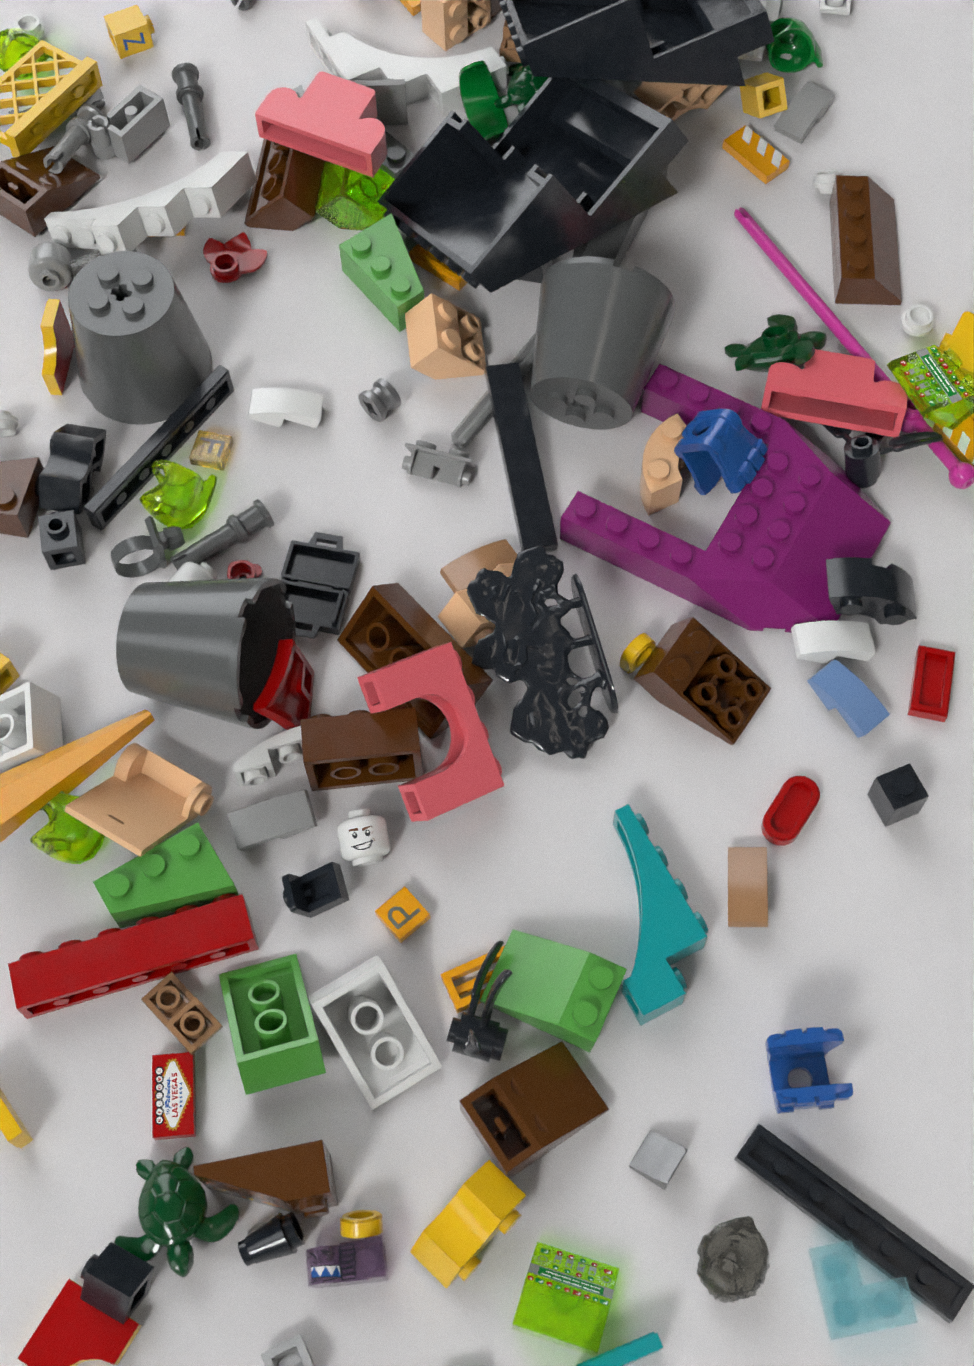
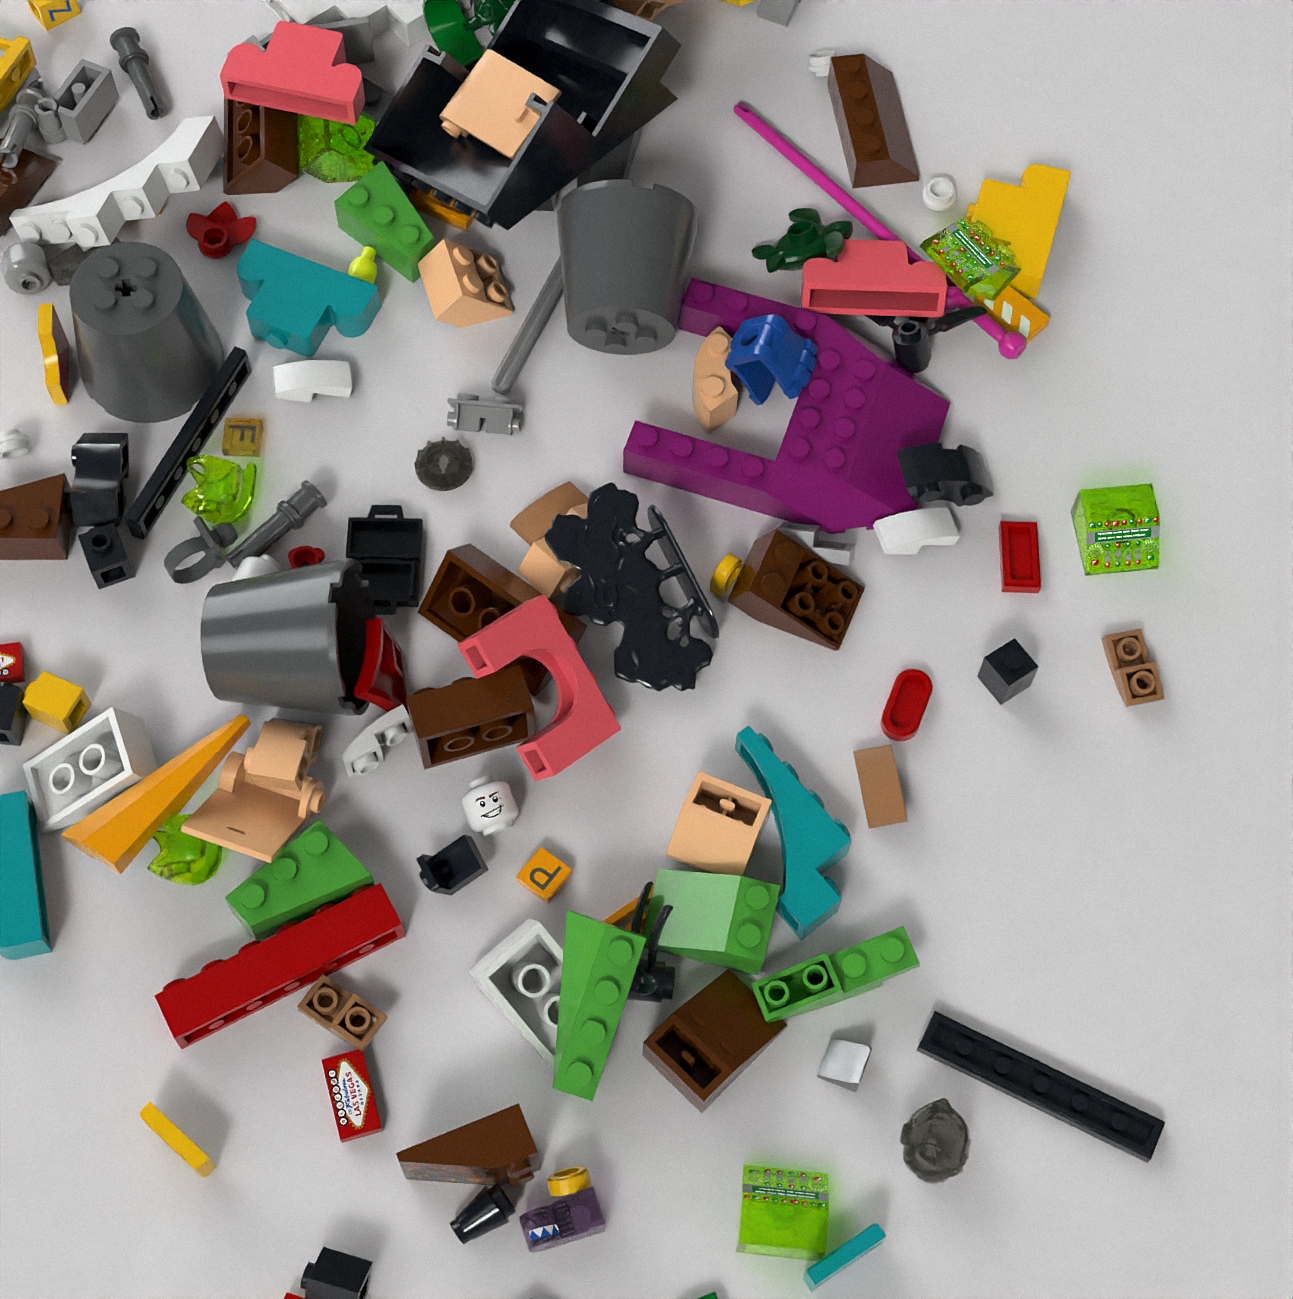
camera: 15 degrees left, 0 degrees up
(173, 1212) = (379, 1207): dark green animal -> none
(179, 753) = (283, 753): none -> light nougat brick
(271, 1024) = (437, 1006): bright green slope -> none
(272, 819) = (392, 803): light grey slope -> none
(291, 331) = (301, 299): none -> teal brick
(354, 314) = (364, 266): none -> neon yellow cylinder
(379, 399) = (409, 357): flat silver wheel -> none
(402, 512) = (457, 470): none -> clear smoke gear
(422, 1038) = (593, 992): none -> bright green wedge
(468, 1224) = (674, 1159): yellow brick -> none
(499, 173) = (493, 104): none -> light nougat door
(520, 457) = (567, 394): black tile -> none
(579, 899) = (718, 826): none -> light nougat slope
(665, 1070) = (835, 977): none -> bright green slope
(725, 631) = (808, 537): none -> light grey slope
(755, 154) = (743, 44): light orange tile -> none
(804, 1052) = (966, 934): blue piece -> none
(849, 1304) = (1053, 1162): clear light blue plate -> none
(850, 696) = (938, 579): medium blue slope -> none

